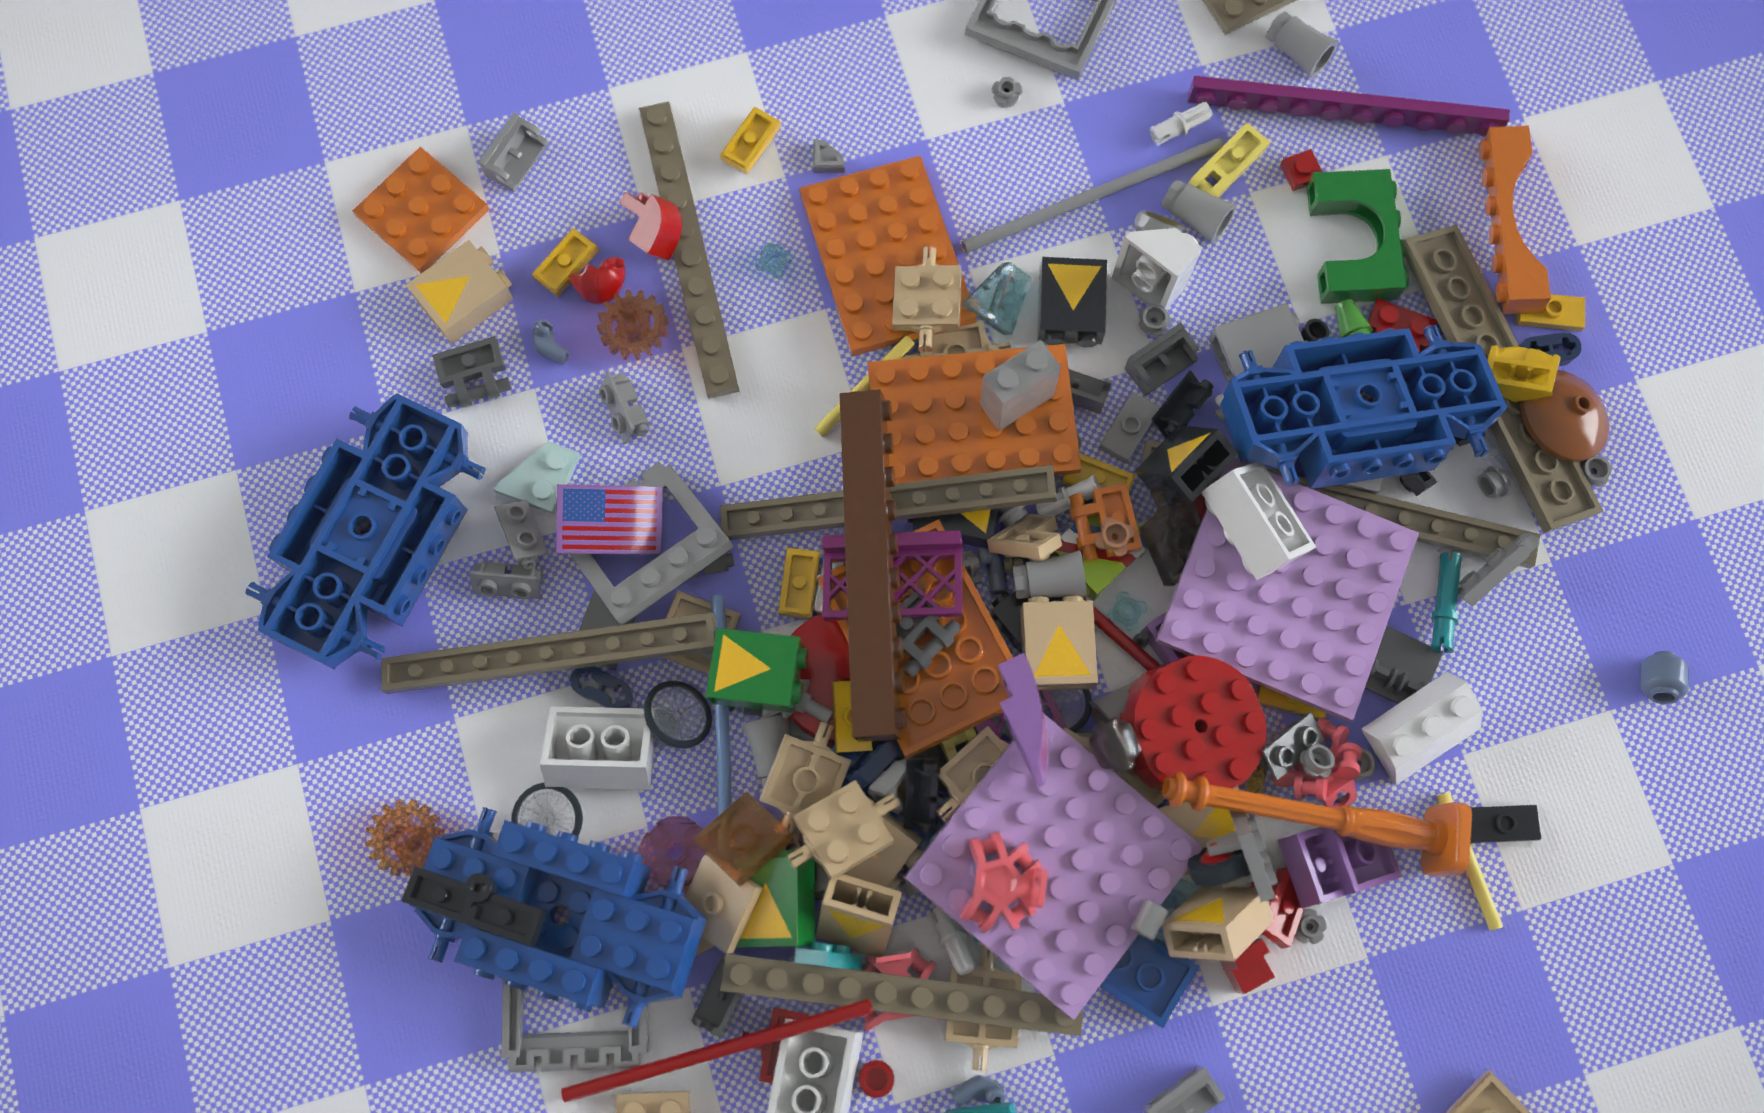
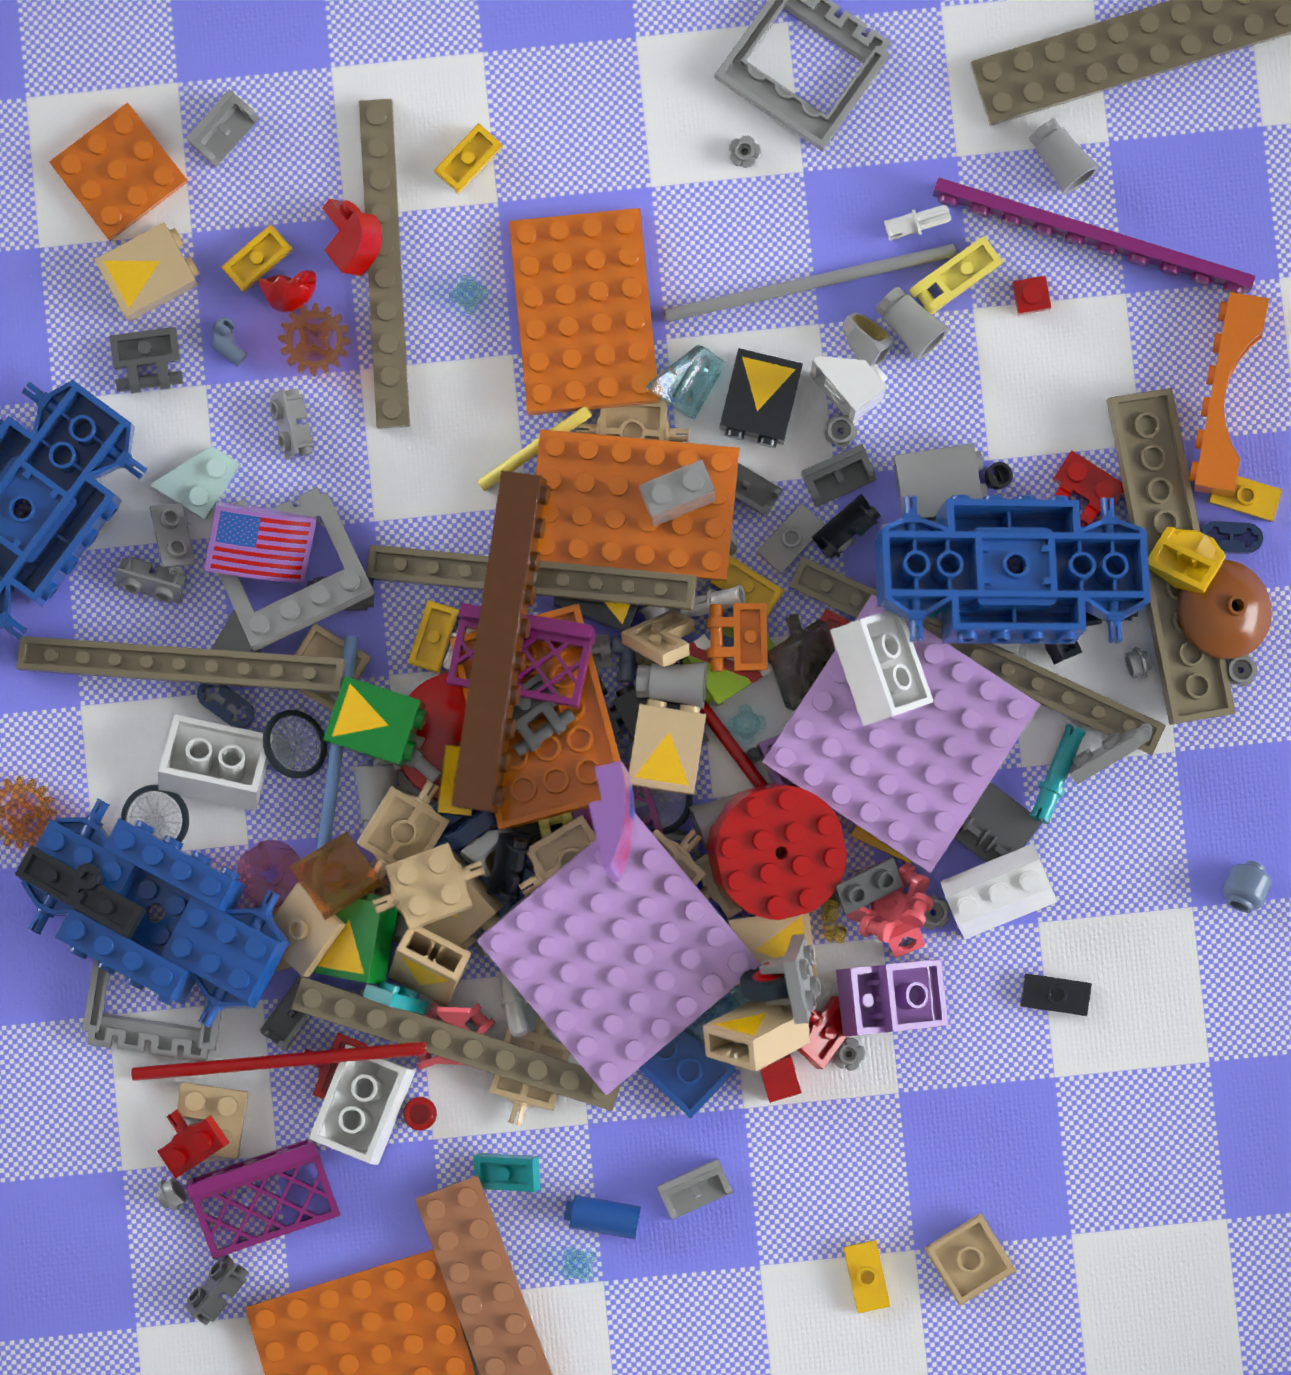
camera: 15 degrees right, 10 degrees up
(826, 158) = (543, 190): light grey tile -> none
(927, 298) = (611, 374): tan plate -> none
(979, 1088) = (511, 1139): sand blue arm -> none
(1001, 884) = (561, 963): coral piece -> none
(1114, 744) = (695, 855): clear smoke head -> none
(1119, 528) = (741, 646): nougat plate -> none
(1149, 919) = (692, 1020): light grey hinge -> none
(1187, 462) = (827, 595): black brick -> none
(1317, 761) = (892, 899): light grey plate -> none
(1351, 319) = (1038, 474): bright green cone -> none
(1371, 198) = (1091, 341): green arch -> none
(1441, 836) = (983, 995): orange piece -> none
(1478, 882) = (1015, 1022): light yellow bar -> none

